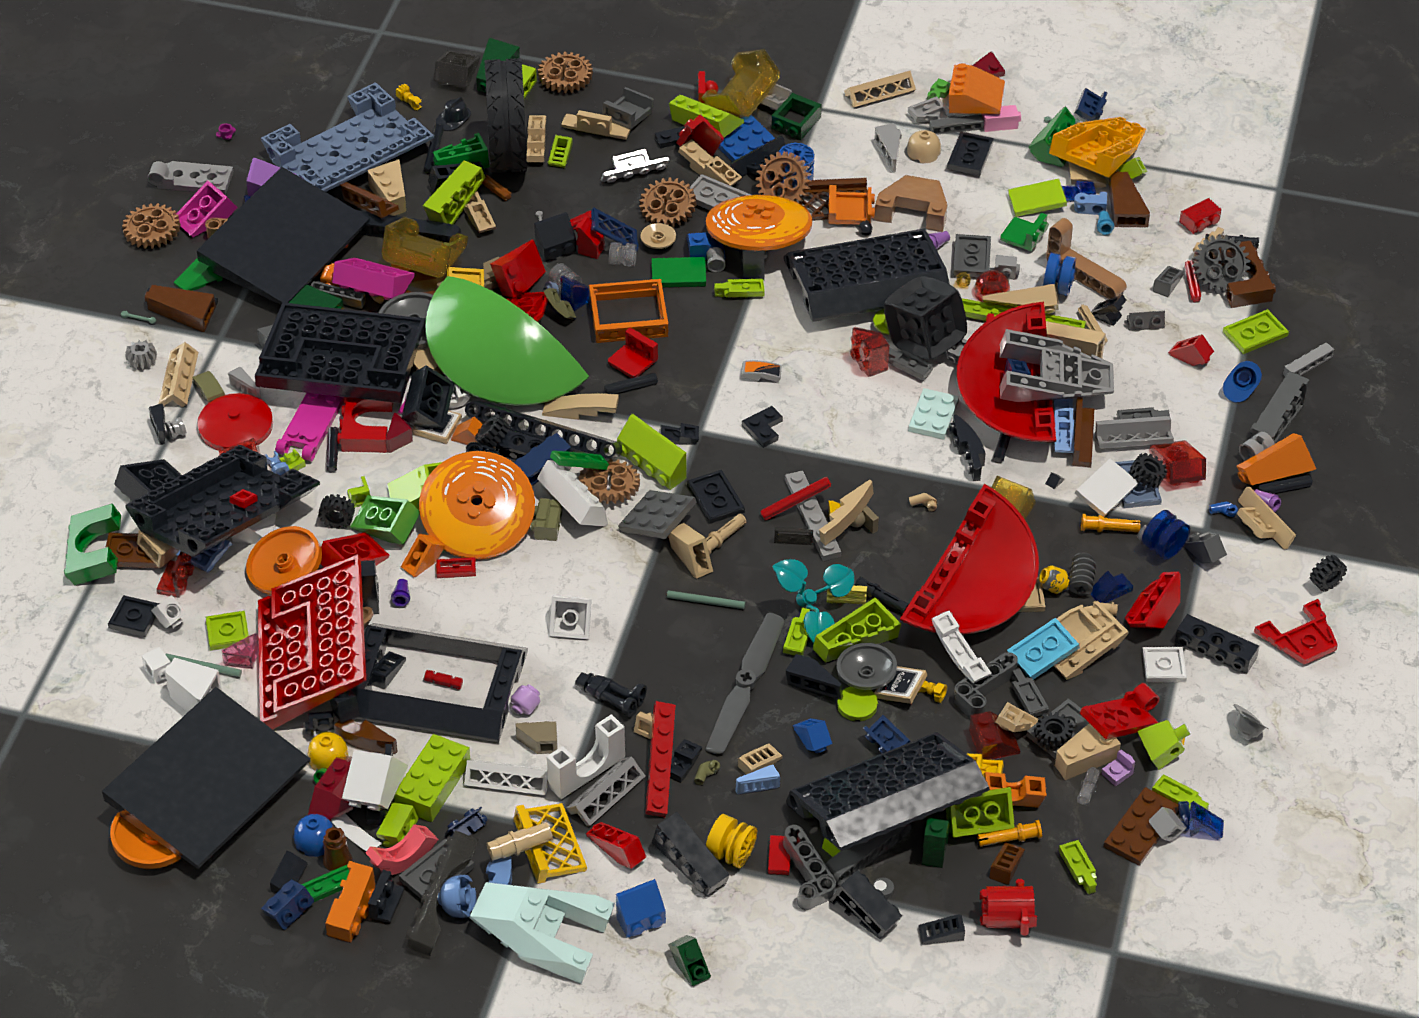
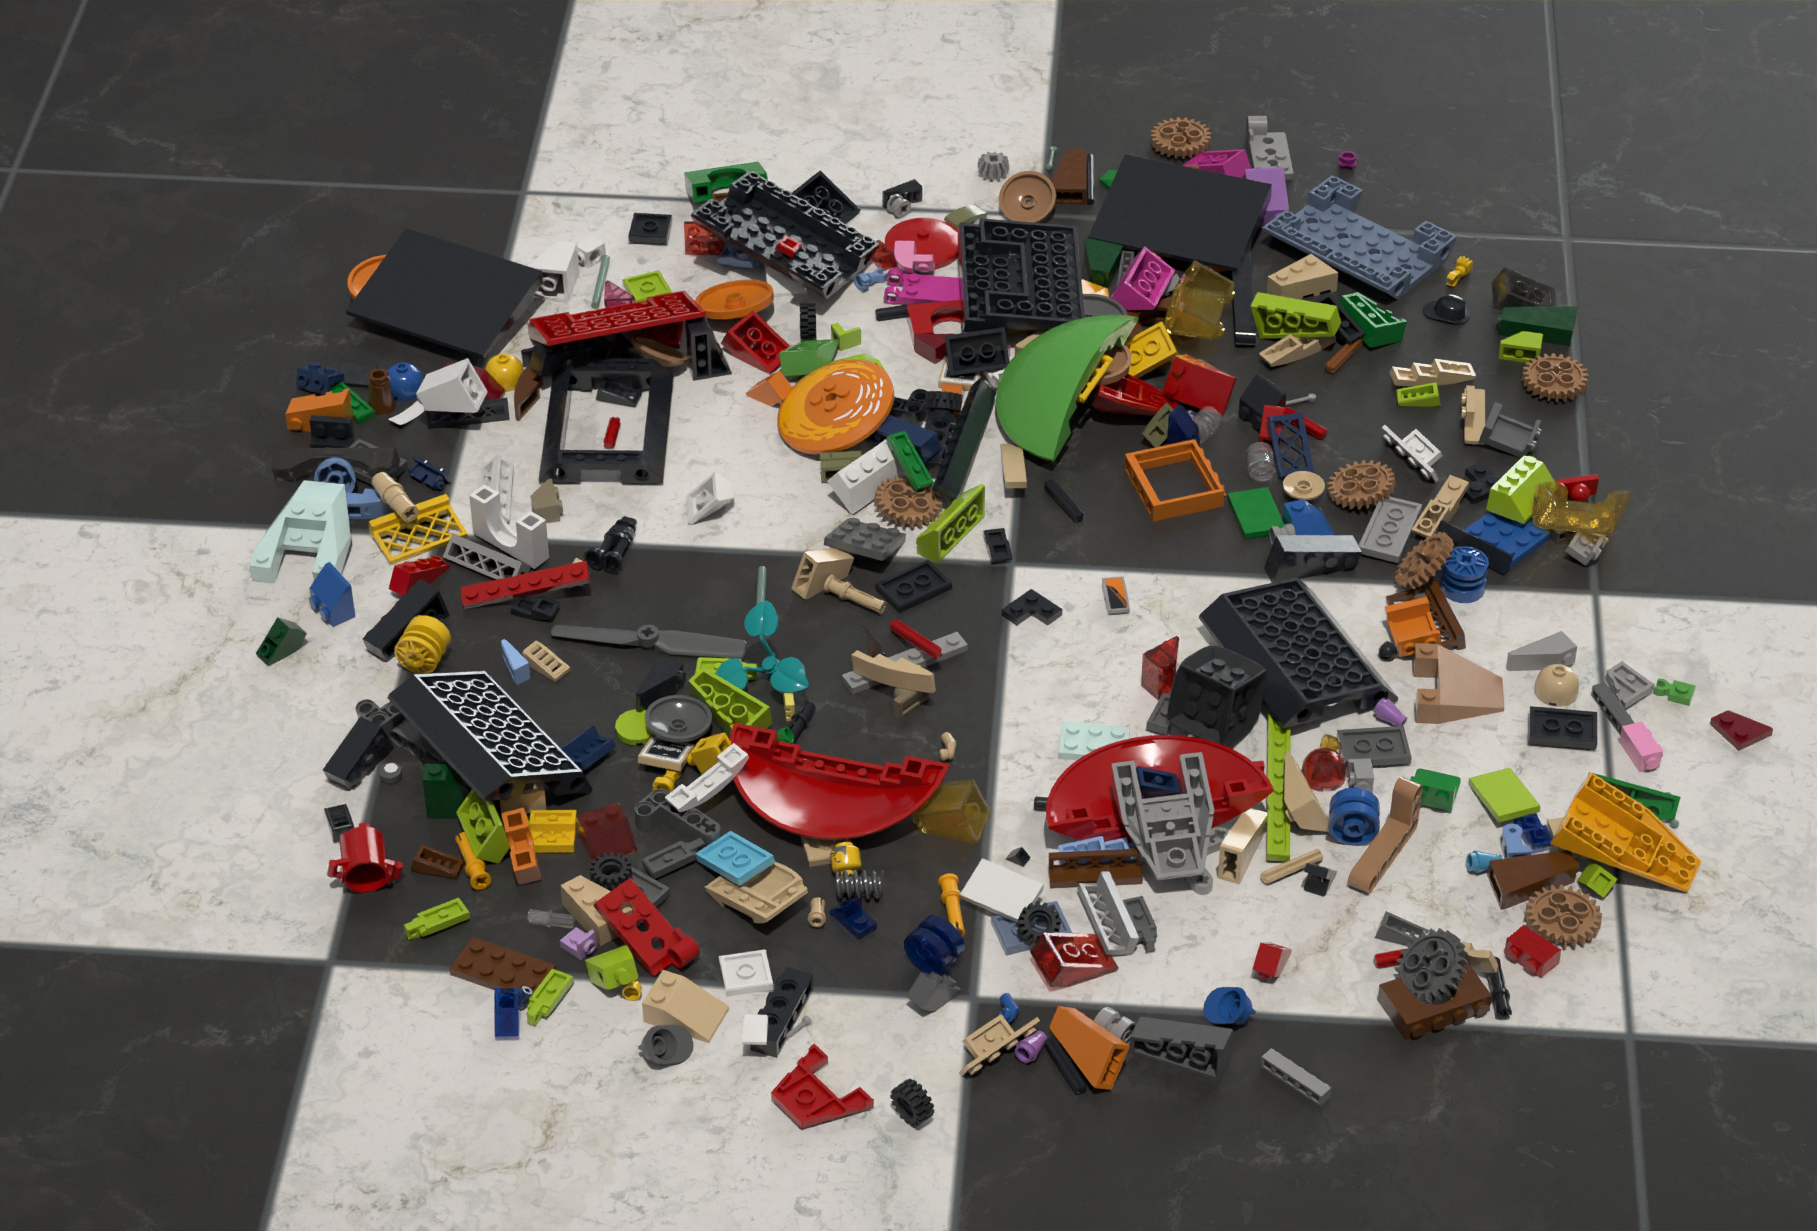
camera: 80 degrees right, 5 degrees down
(172, 605) = (649, 236): white brick -> none
(179, 375) = (967, 196): tan fence -> none
(212, 328) = (1025, 188): none -> medium nougat dish
(268, 431) = (909, 261): none -> bright pink brick
(293, 460) = (877, 287): lime tile -> none
(367, 200) = (1265, 263): reddish brown fence -> none
(397, 823) = (420, 430): lime hinge -> none
(401, 594) = (717, 385): dark purple cone -> none
(406, 852) = (379, 433): coral arch -> none
(433, 776) = (479, 439): lime brick -> none
(434, 146) = (1399, 303): black axle -> none
(454, 569) = (765, 428): red tile -> none
(506, 115) = (1385, 275): black tyre -> none
(525, 699) = (591, 486): lavender head -> none
(635, 355) = (1104, 495): red bracket -> none
(702, 133) = (1477, 476): red bracket -> none
(706, 769) = (524, 625): olive arm -> none
(740, 288) = (1244, 562): lime hinge -> none
(759, 222) = (1315, 547): orange dish -> none
(800, 105) = (1557, 580): dark green window -> none
(813, 734) = (582, 693): blue slope -> none
(876, 84) = (1649, 626): tan fence -> none
(905, 596) = (785, 735): none -> green hinge
(921, 646) = (706, 751): none -> yellow torso
(968, 444) = (1039, 776): black slope -> none
(975, 91) = (1670, 709): orange slope -> none
(1015, 719) = (626, 840): tan wing -> none
(1090, 105) = (1706, 828): dark blue bracket -> none
(1146, 320) = (1316, 914): dark grey hinge -> none
(1156, 602) = (820, 950): red wedge -> none
(1167, 193) = (1563, 915): none -> medium nougat gear
(1167, 824) = (499, 977): light grey panel -> none
(1203, 708) = (683, 1003): none -> tan slope
(1252, 654) = (755, 1029): none -> white slope
(1255, 331) = (1337, 1023): lime tile -> none

